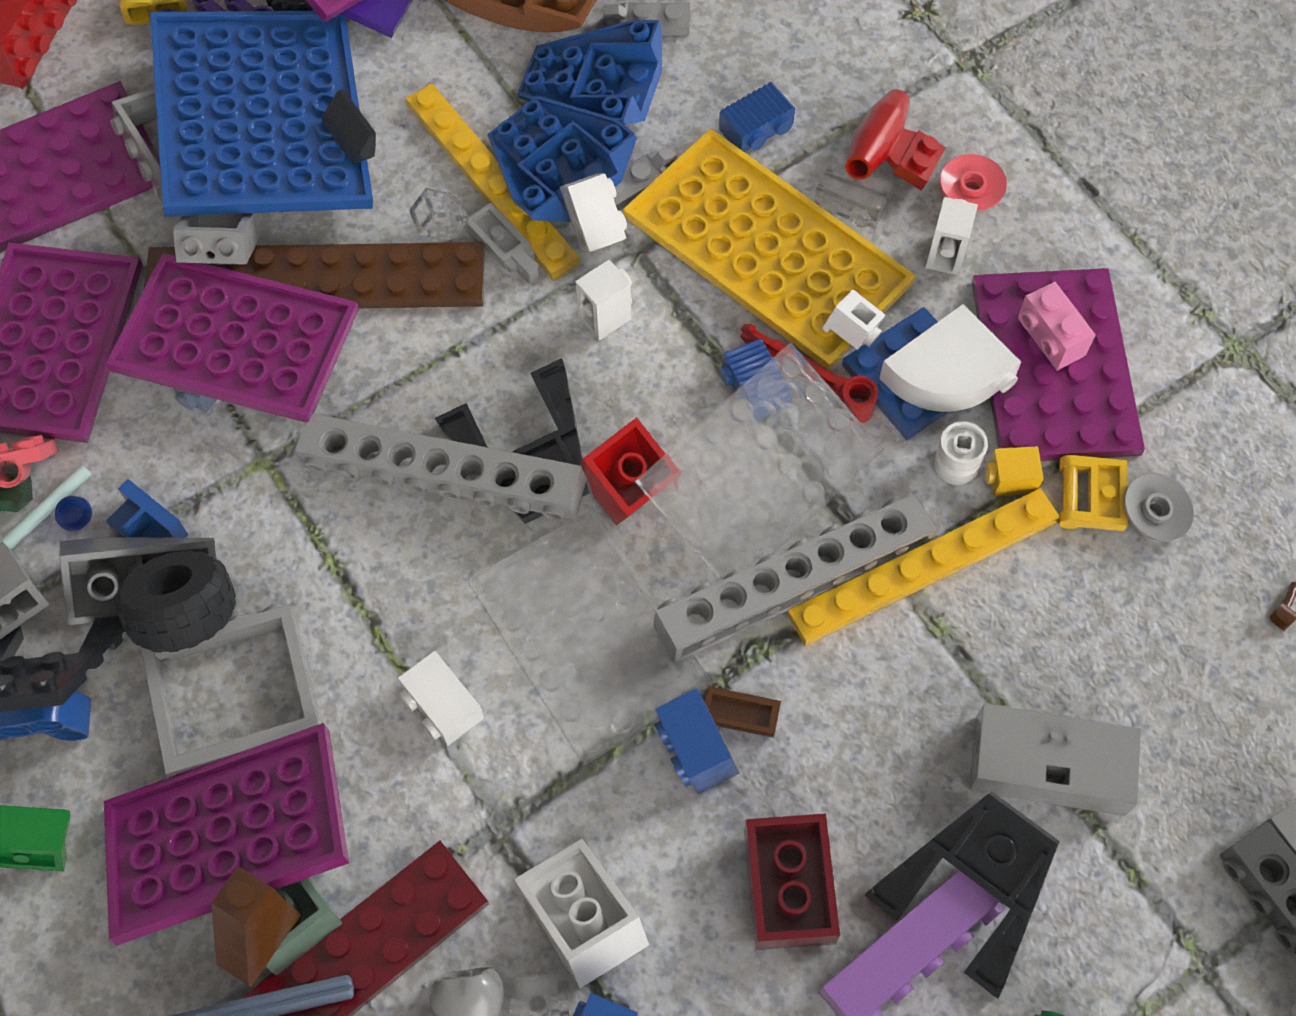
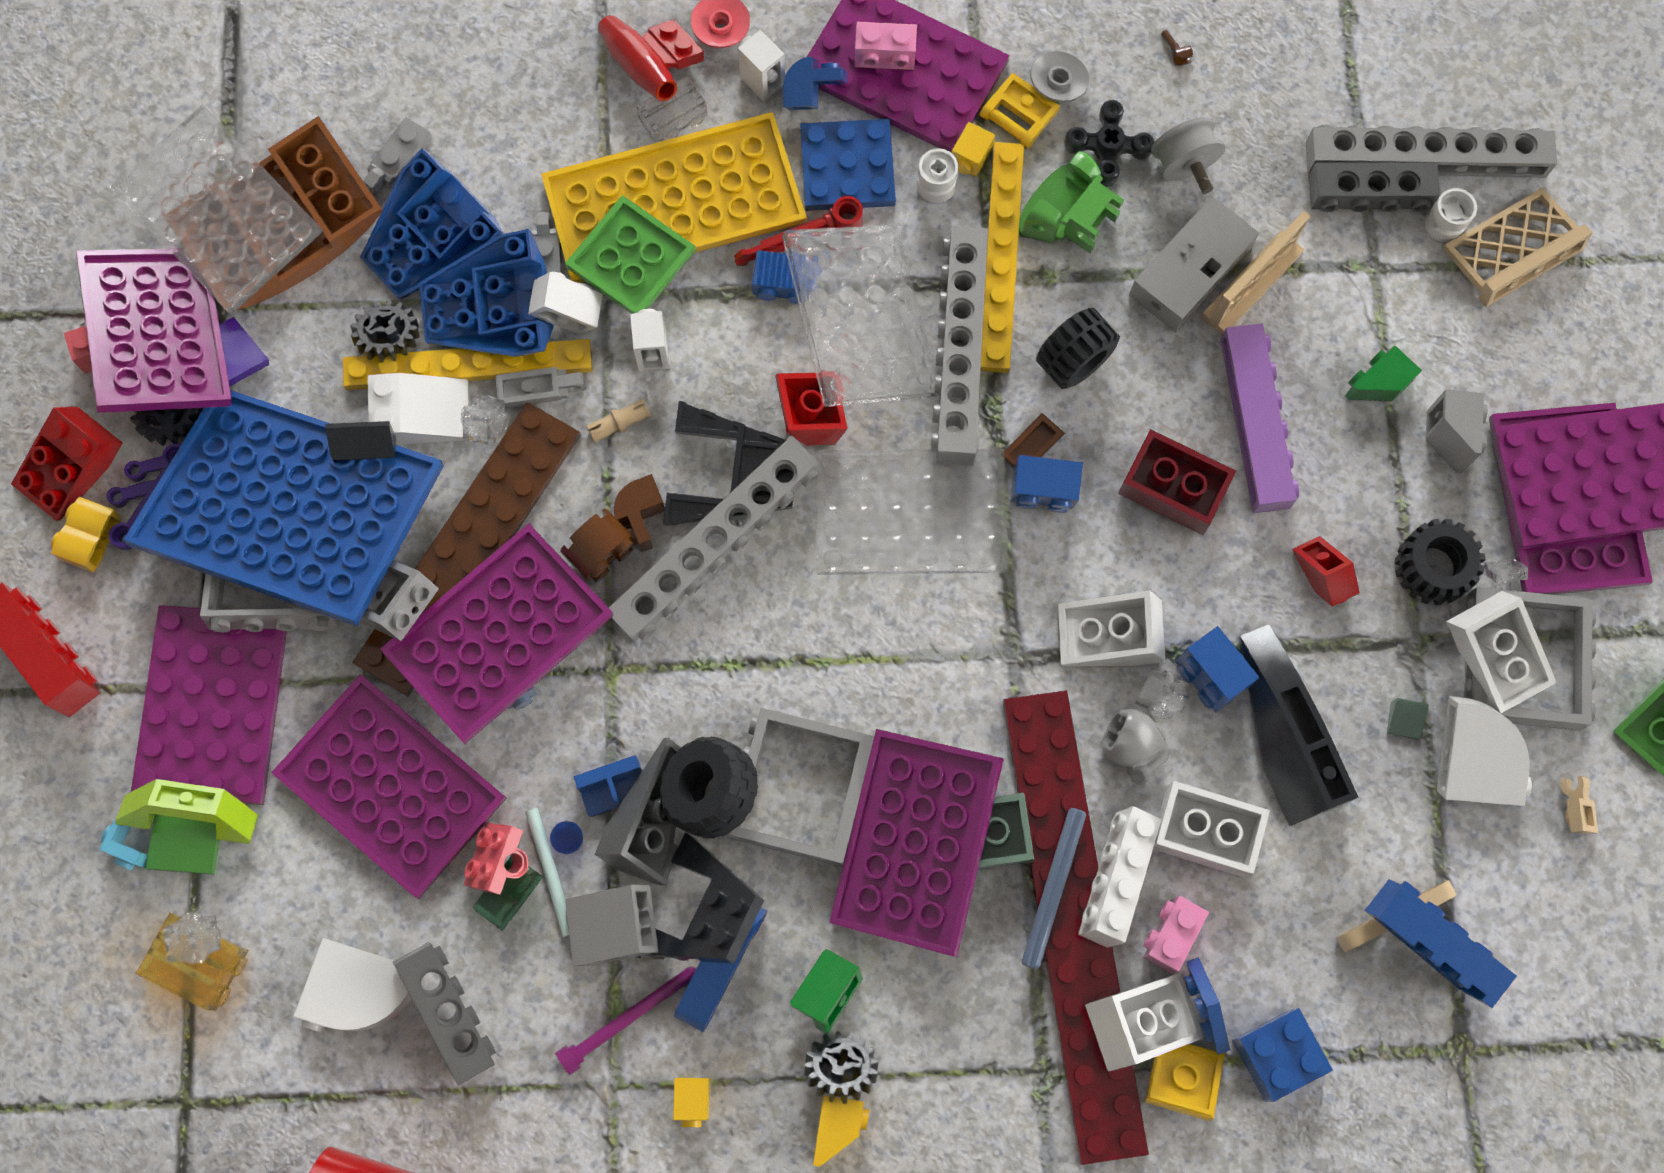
camera: 60 degrees left, 10 degrees up
(249, 925) = (1015, 848): reddish brown slope -> none
(371, 372) = (598, 545): none -> reddish brown brick
(417, 156) = (418, 406): none -> white slope
(435, 383) = (634, 504): none -> reddish brown brick
(440, 698) = (898, 642): white brick -> none
(475, 97) = (385, 331): none -> black gear
(514, 325) = (618, 420): none -> tan pin
(677, 238) = (630, 256): none -> bright green plate
(757, 118) = (554, 134): blue brick -> none
(855, 320) = (789, 176): white brick -> none
(867, 688) = (1077, 348): none -> black tyre
(951, 365) = (869, 134): white brick -> none
(963, 281) = (802, 82): none -> blue brick
(1000, 854) = (1240, 338): black wing -> none
(1025, 596) = (1070, 205): none -> bright green piece
(1104, 835) = (1256, 277): none -> tan fence
(1115, 605) = (1109, 142): none -> black gear
(1174, 677) = (1189, 151): none -> light grey wheel

